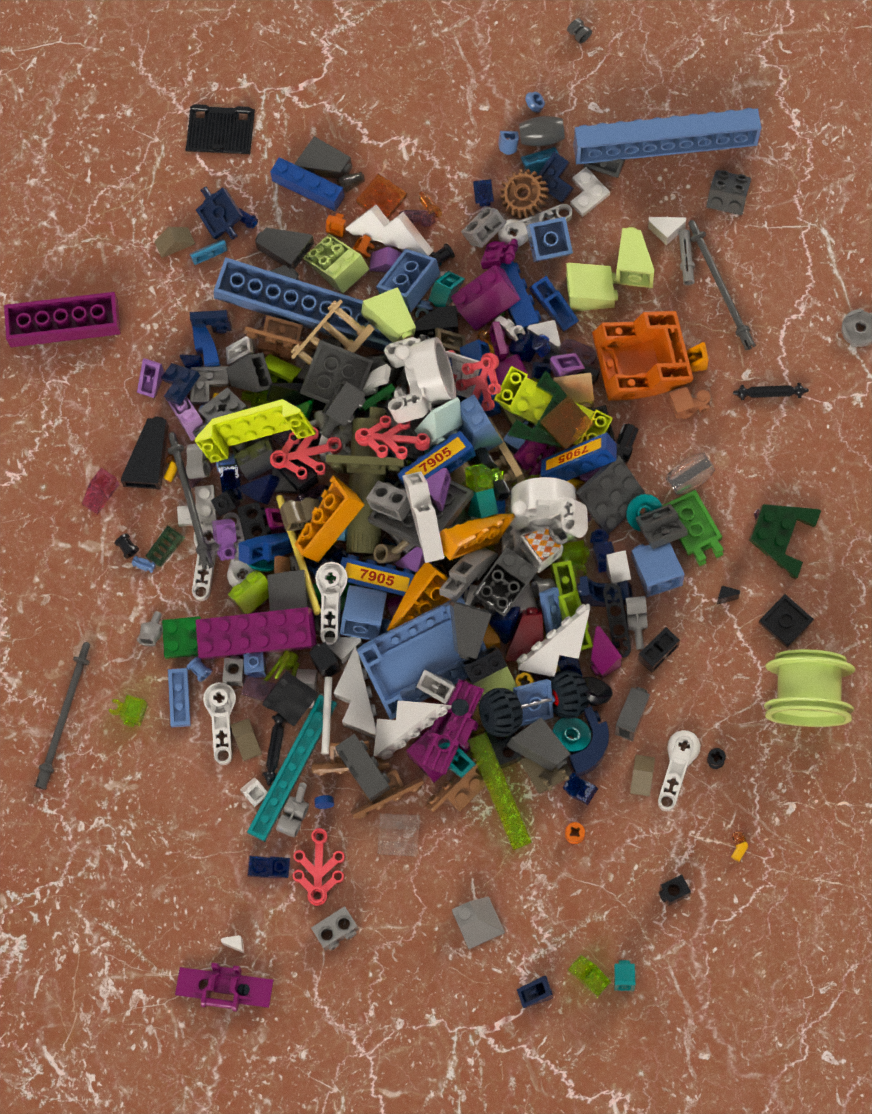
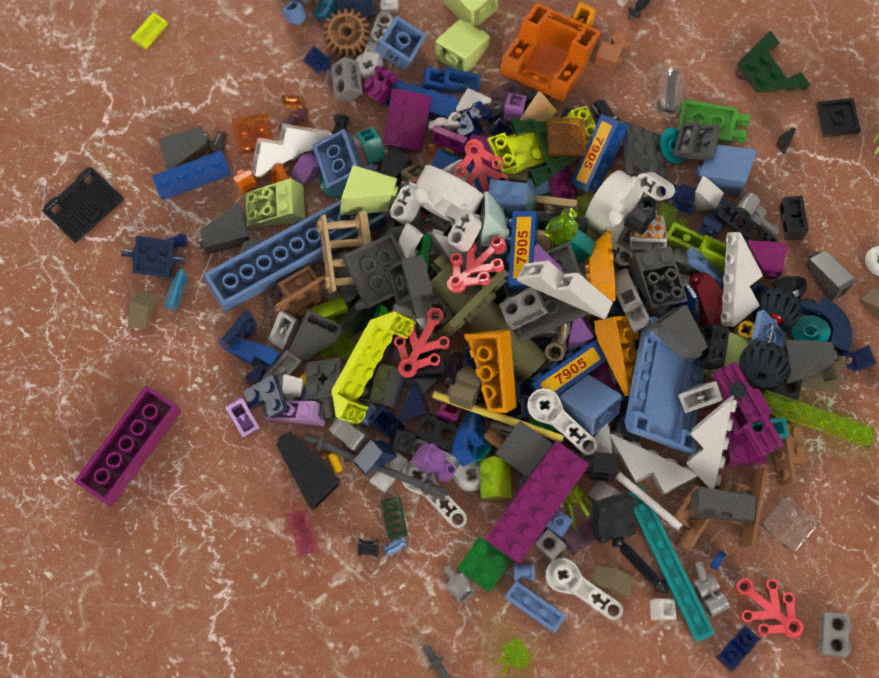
camera: 55 degrees left, 0 degrees up
(195, 492) = (374, 456): none -> slope
(201, 393) = (292, 385): none -> white slope
(401, 52) = (149, 30): none -> neon yellow tile
(544, 529) = (641, 215): none -> black piece

